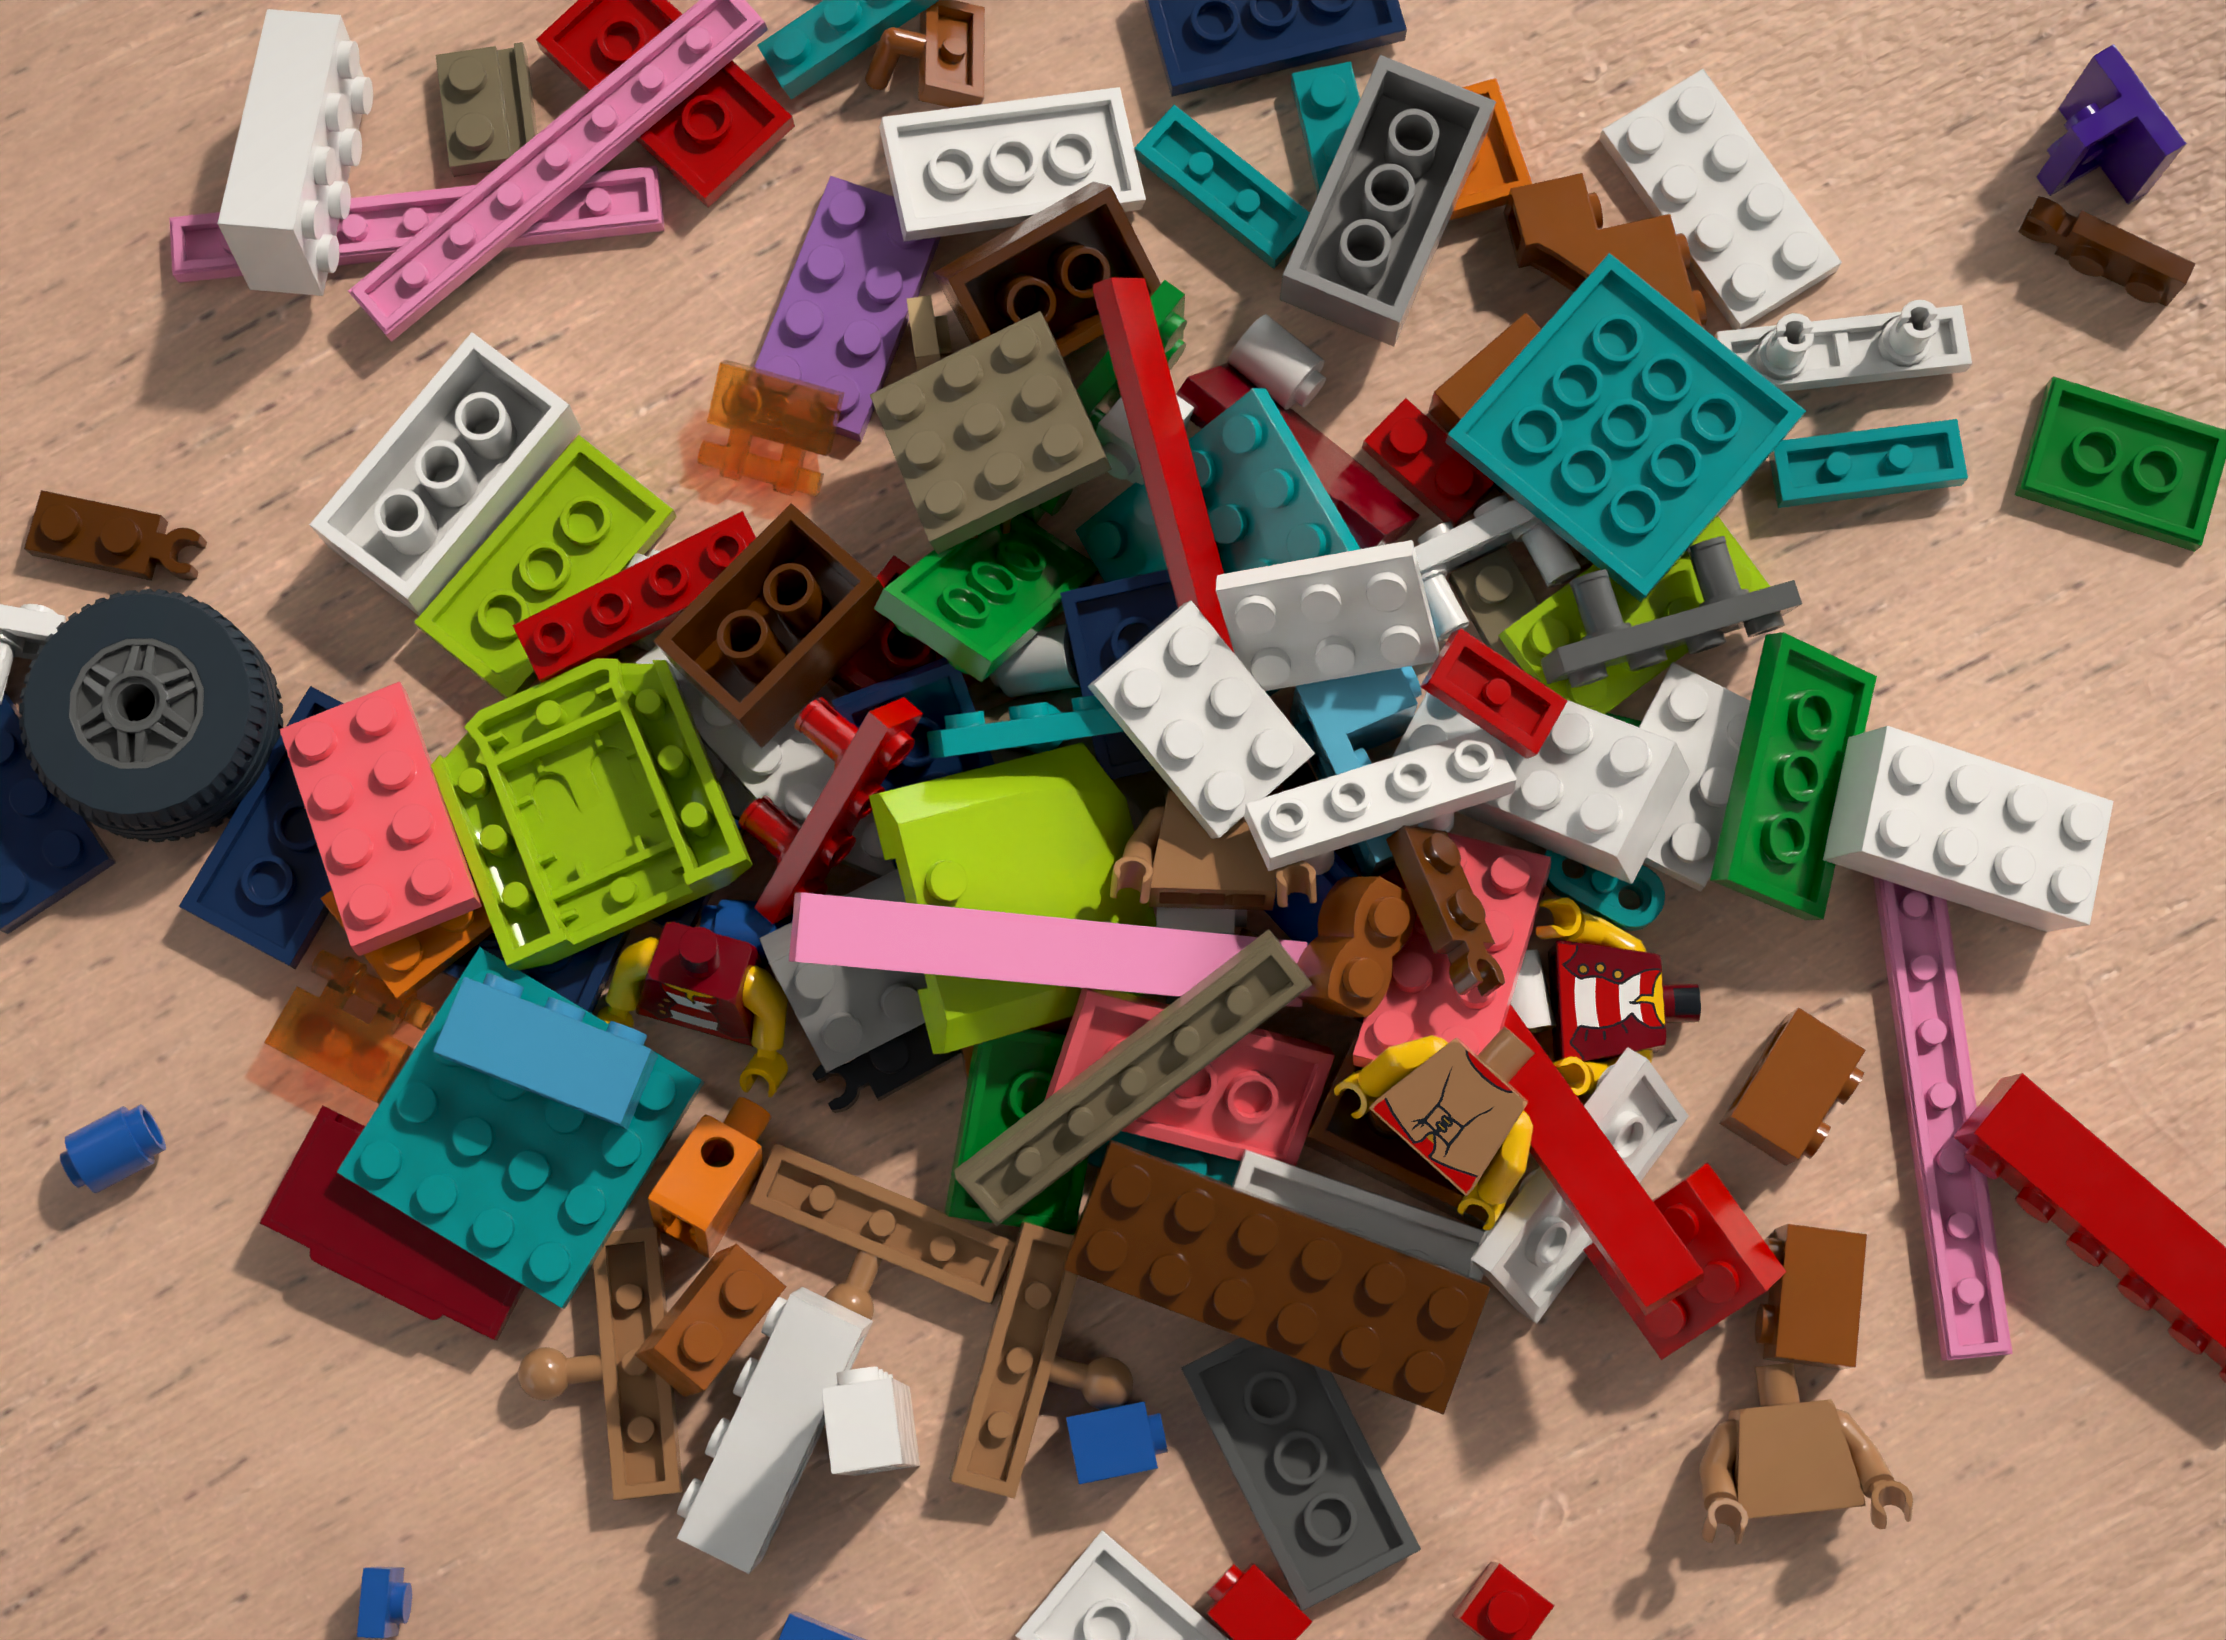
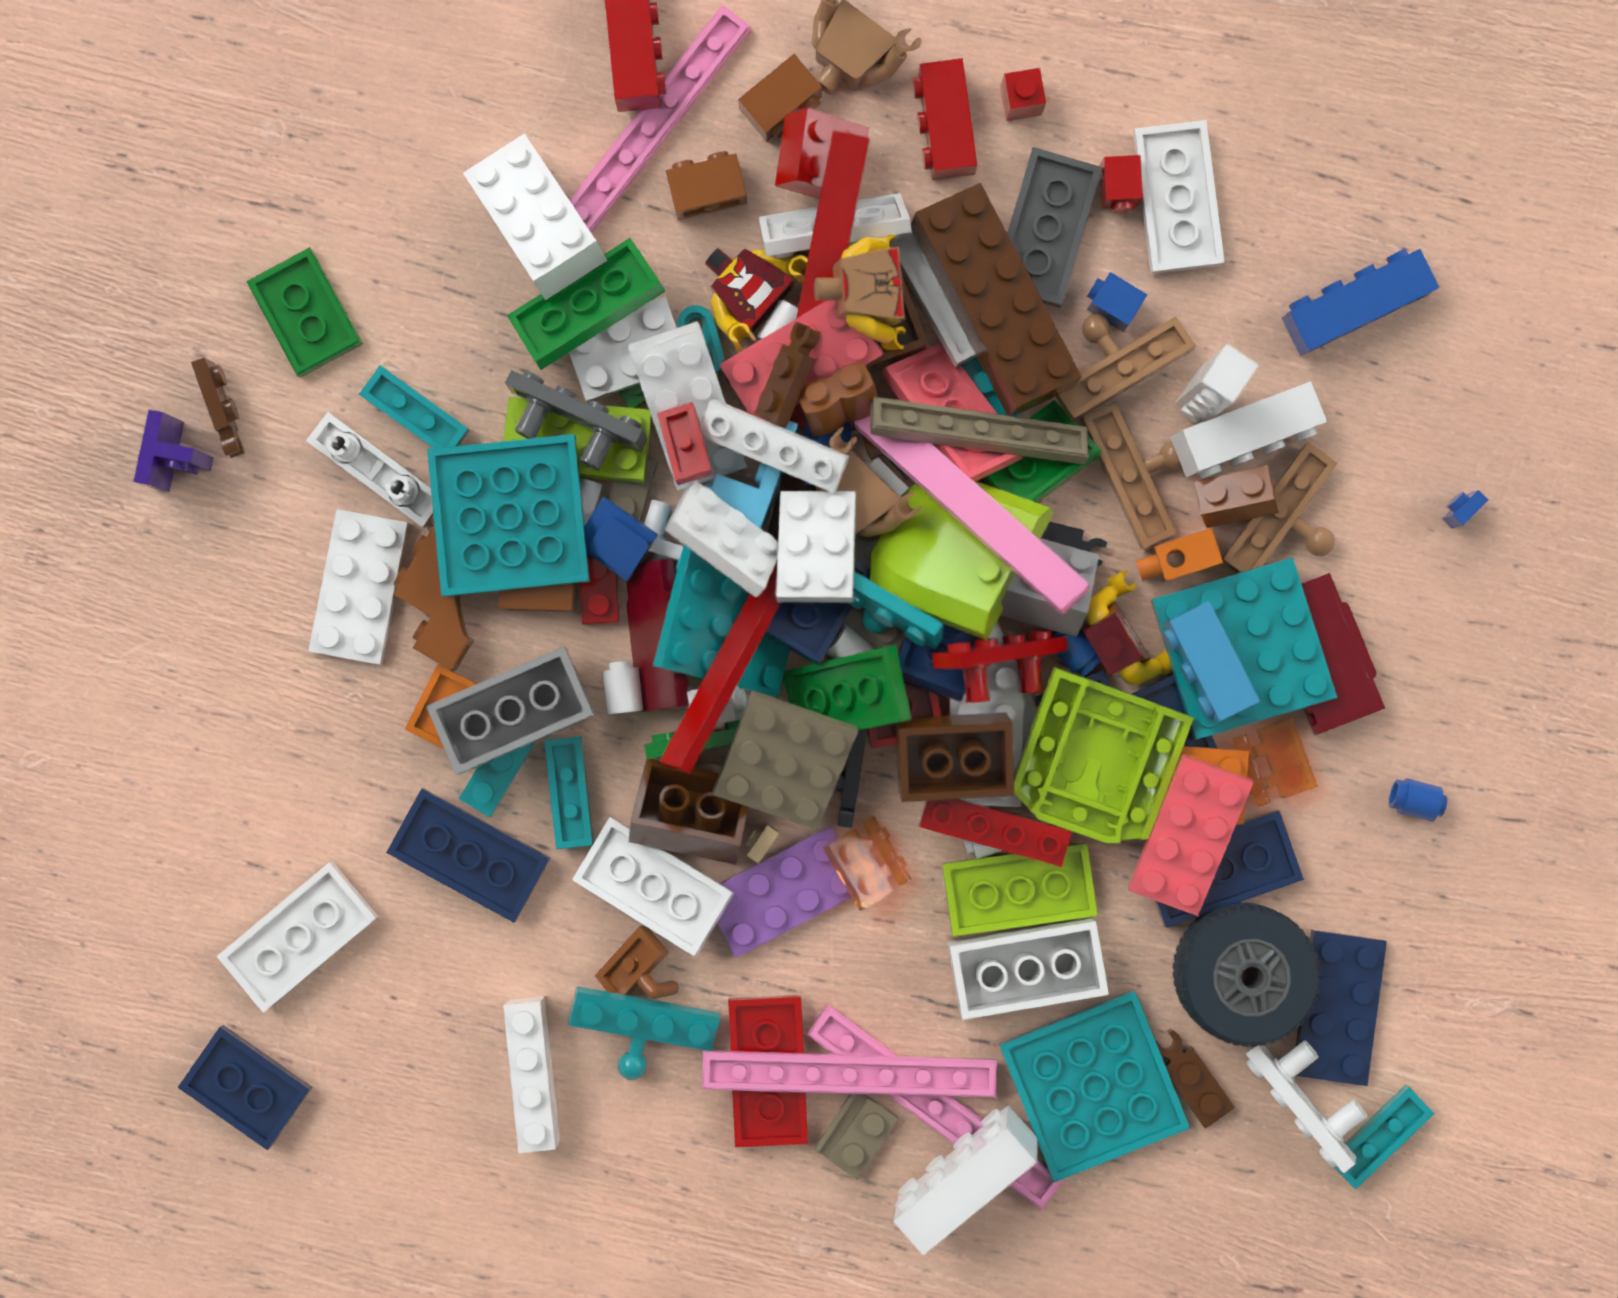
camera: 140 degrees left, 10 degrees up
(233, 417) = (1094, 1085): none -> teal plate
(883, 500) = (849, 781): none -> black plate
(1464, 525) = (617, 538): none -> blue piece
(1573, 1477) = (945, 119): none -> red brick

